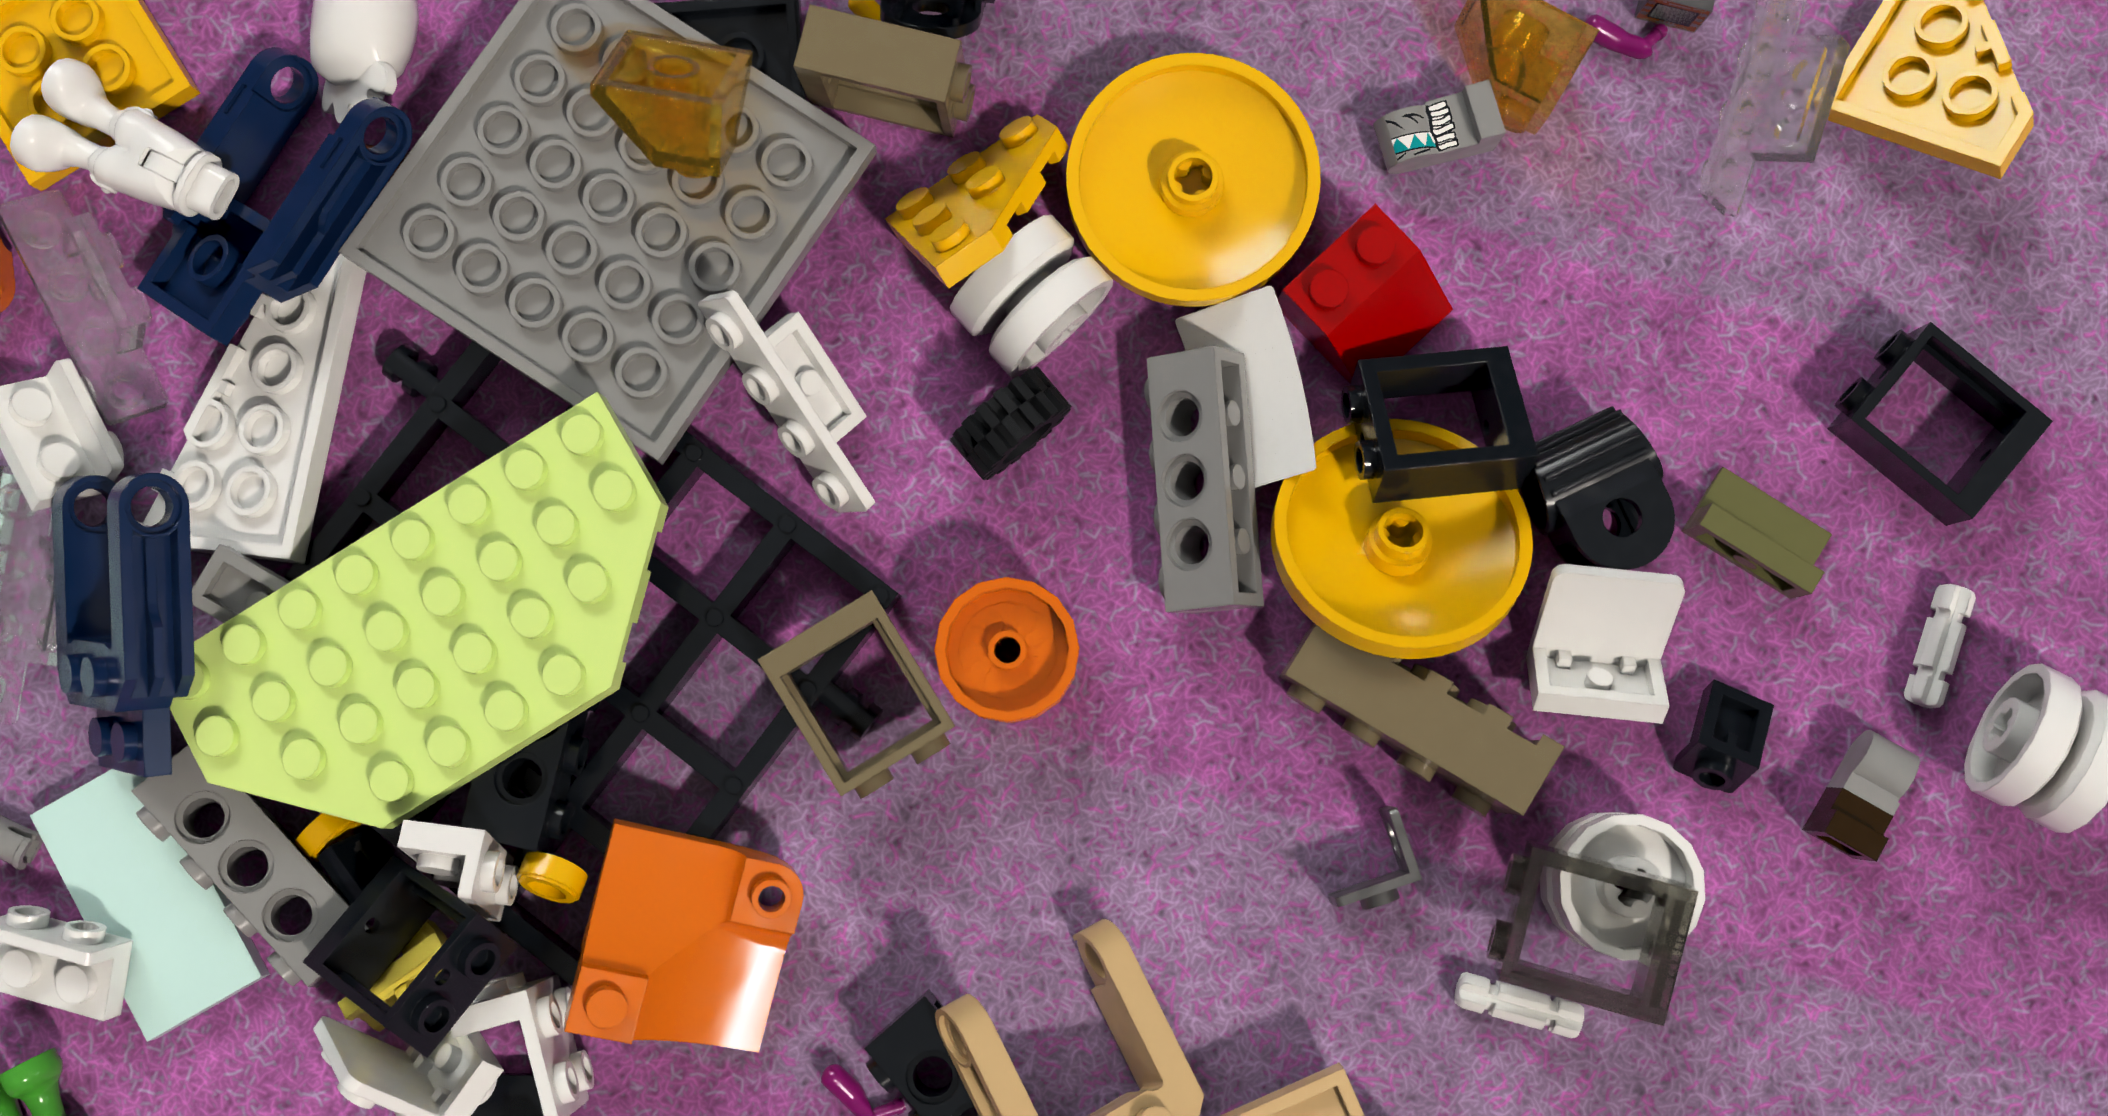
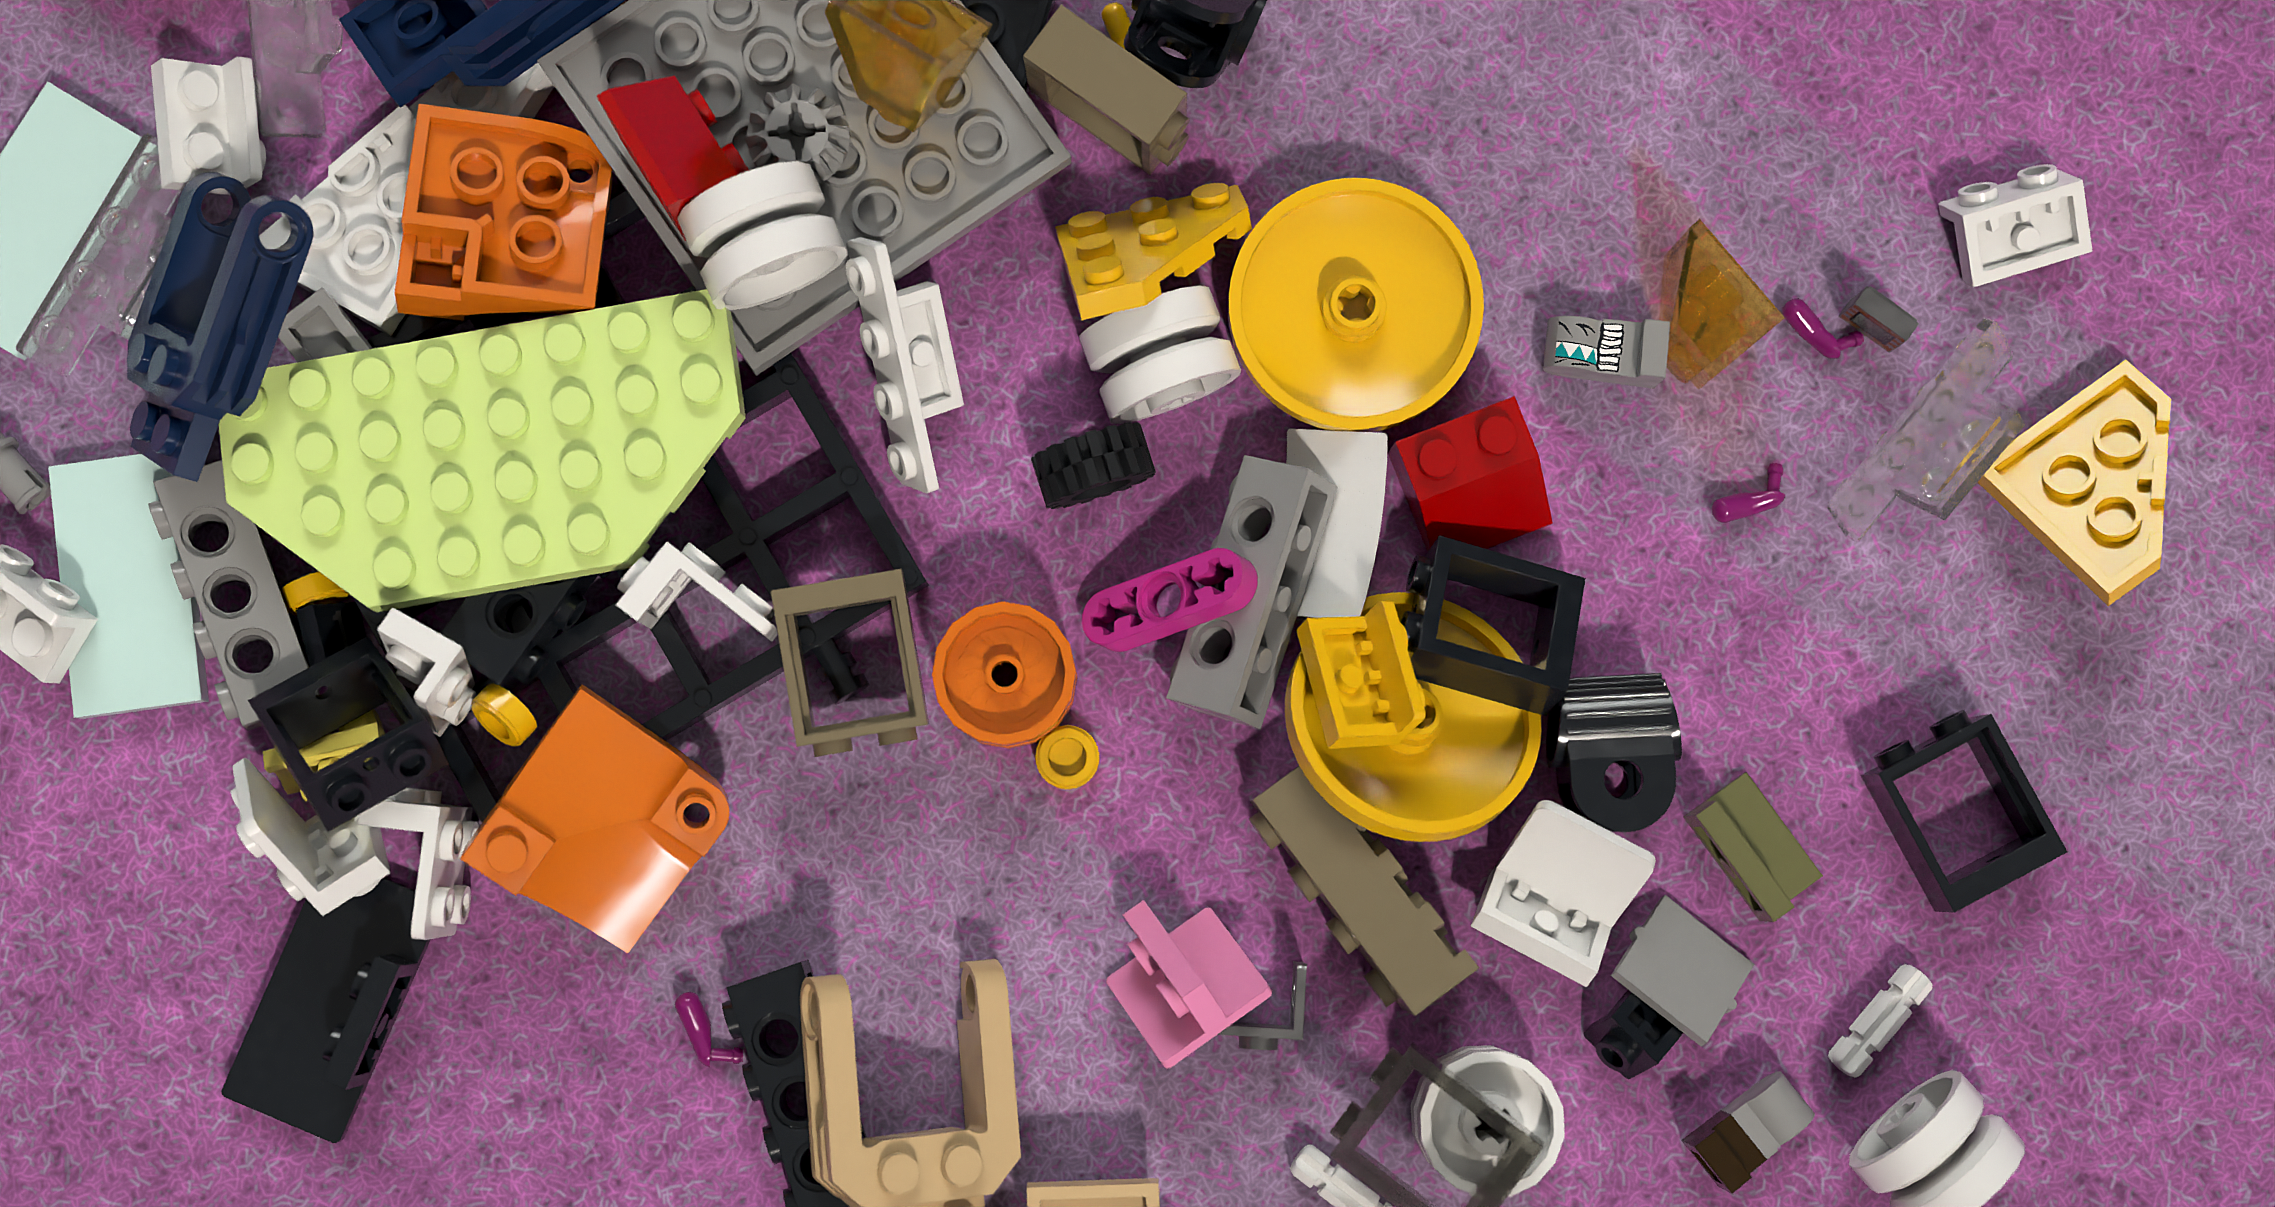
camera: 15 degrees right, 0 degrees up
(360, 411) = (498, 218): none -> orange slope
(503, 282) = (671, 140): none -> red slope
(615, 328) = (762, 235): none -> white wheel
(641, 231) = (774, 115): none -> light grey gear
(646, 697) = (655, 585): none -> white bracket
(1094, 704) = (1067, 757): none -> yellow tile
(1159, 518) = (1195, 605): none -> dark pink beam
(1290, 870) = (1184, 982): none -> bright pink bracket
(1344, 519) = (1362, 677): none -> yellow bracket
(1624, 220) = (1748, 504): none -> magenta piece
(1742, 672) = (1682, 970): none -> light grey piece

